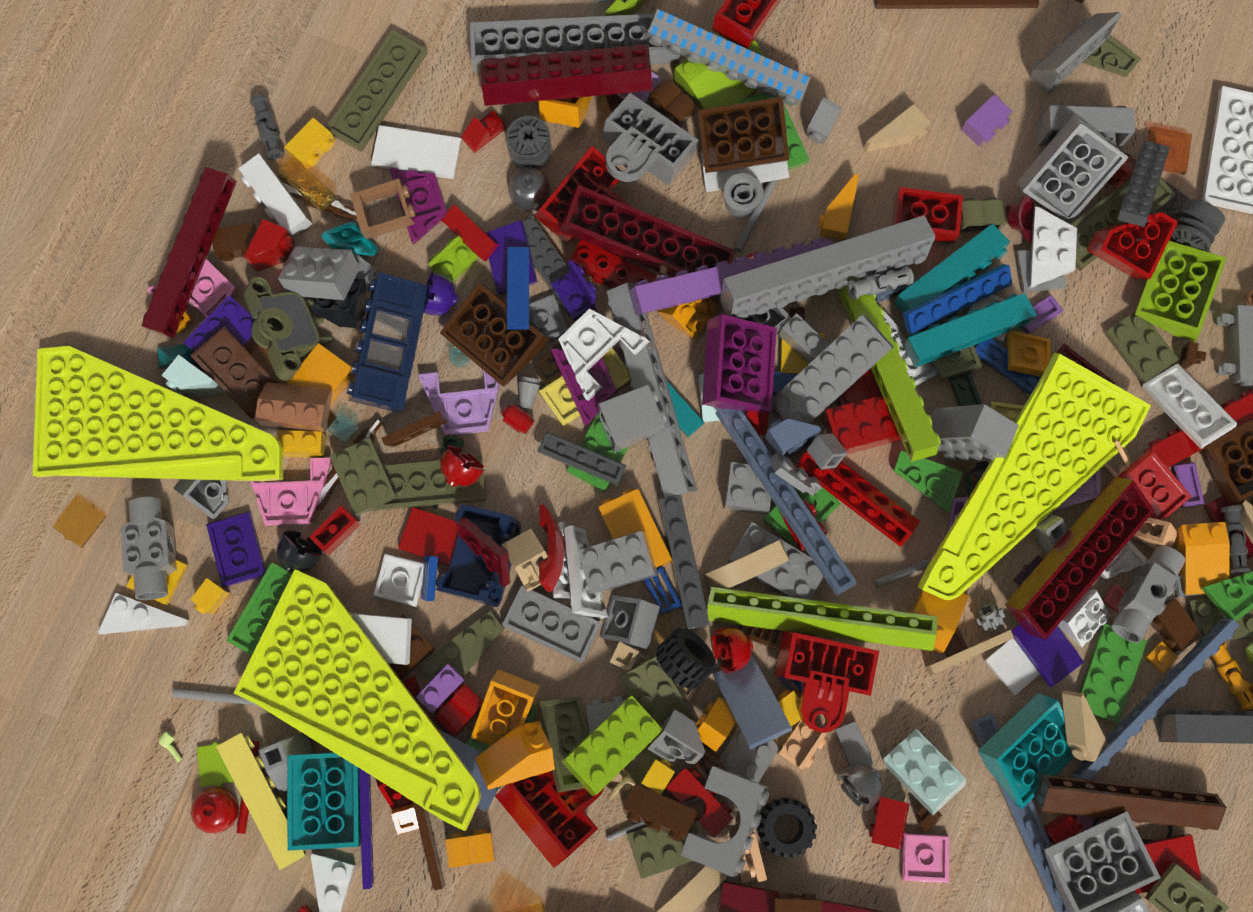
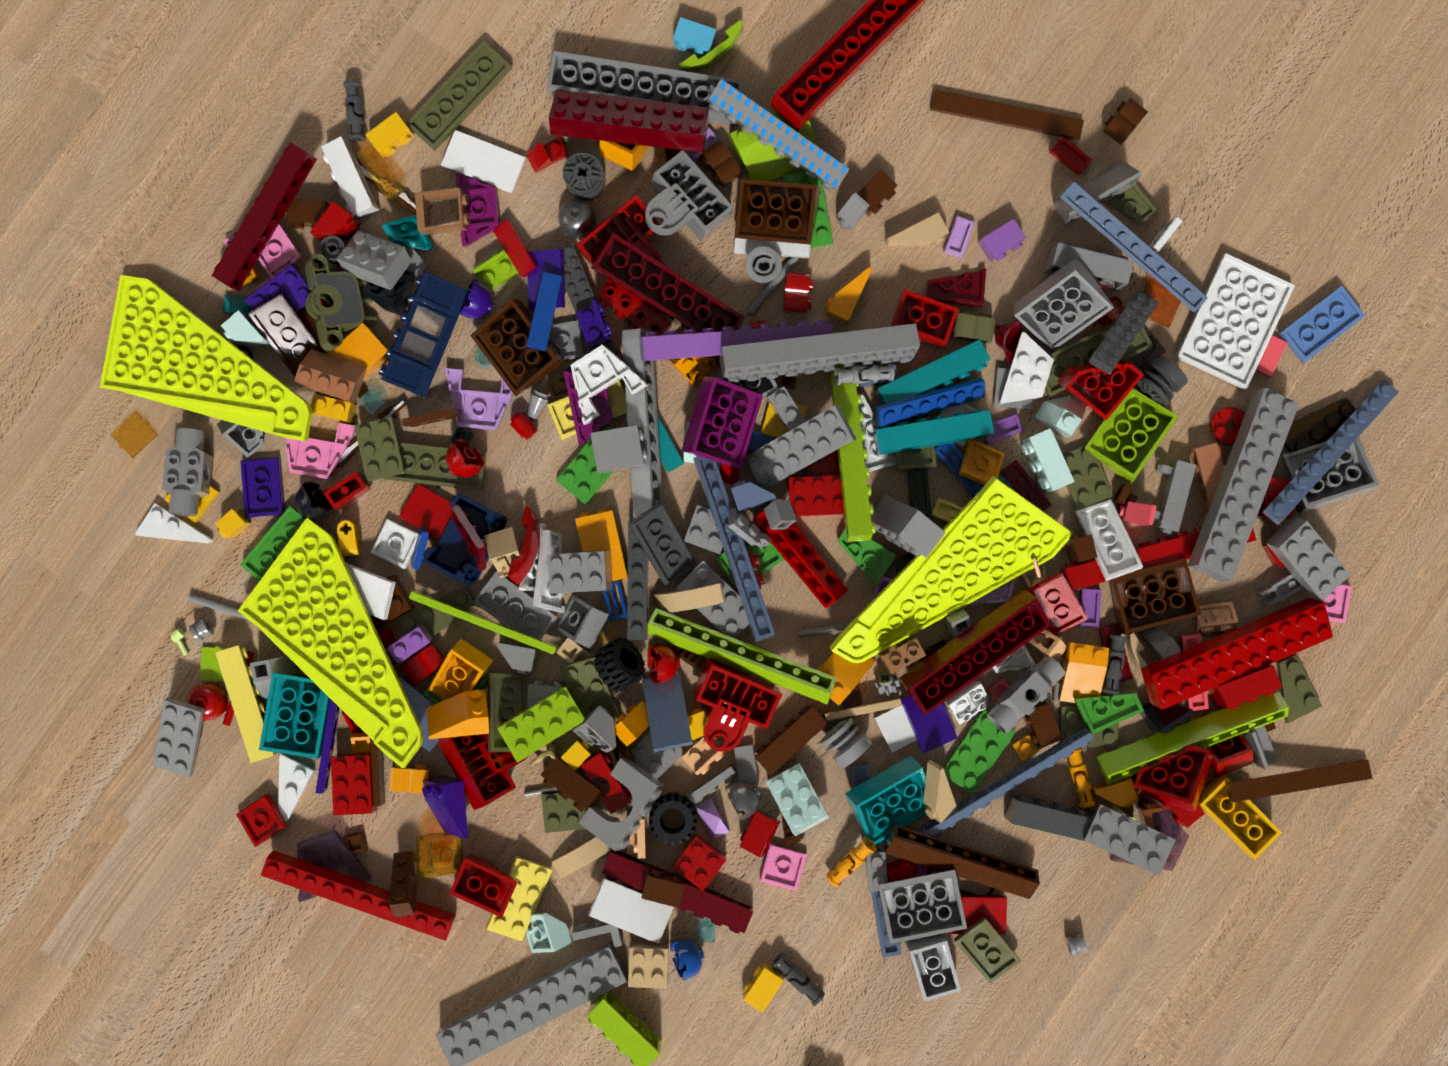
camera: 15 degrees right, 10 degrees up
(188, 858) = (178, 737): none -> light grey plate
(193, 726) = (201, 629): none -> light grey wheel
(270, 269) = (331, 248): none -> dark grey wheel
(346, 589) = (348, 540): none -> yellow piece
(404, 870) = (352, 784): none -> red brick
(519, 644) = (483, 622): none -> lime tile
(522, 869) = (447, 802): none -> dark purple slope
(567, 677) = (519, 656): none -> light grey slope
(581, 458) = (570, 473): dark grey tile -> none
(703, 513) = (662, 544): none -> dark grey tile
(784, 218) = (796, 293): none -> red brick
(820, 778) = (711, 784): none -> light grey hinge
(828, 872) = (699, 861): none -> red brick
(830, 819) = (712, 819): none -> lavender slope
(845, 94) = (877, 191): none -> reddish brown brick
(898, 704) = (791, 739): none -> reddish brown brick
(940, 127) = (959, 237): none -> lavender tile
(958, 690) = (847, 744): none -> light grey wheel
(959, 179) = (961, 289): none -> dark red wing
(997, 578) = (895, 656): none -> medium nougat window
(1004, 833) = (851, 861): none -> light orange piece
(1033, 24) = (1070, 156): none -> red tile
(1034, 835) = (876, 870): none -> light grey plate
(1099, 286) = (1061, 414): none -> light aqua slope
(1099, 335) = (1047, 461): none -> light aqua brick
(1129, 91) = (1132, 246): none -> sand blue plate
(1153, 83) = (1165, 234): none -> white tile
(1162, 419) = (1080, 547): none -> reddish brown brick
(1213, 370) = (1137, 513): none -> coral slope

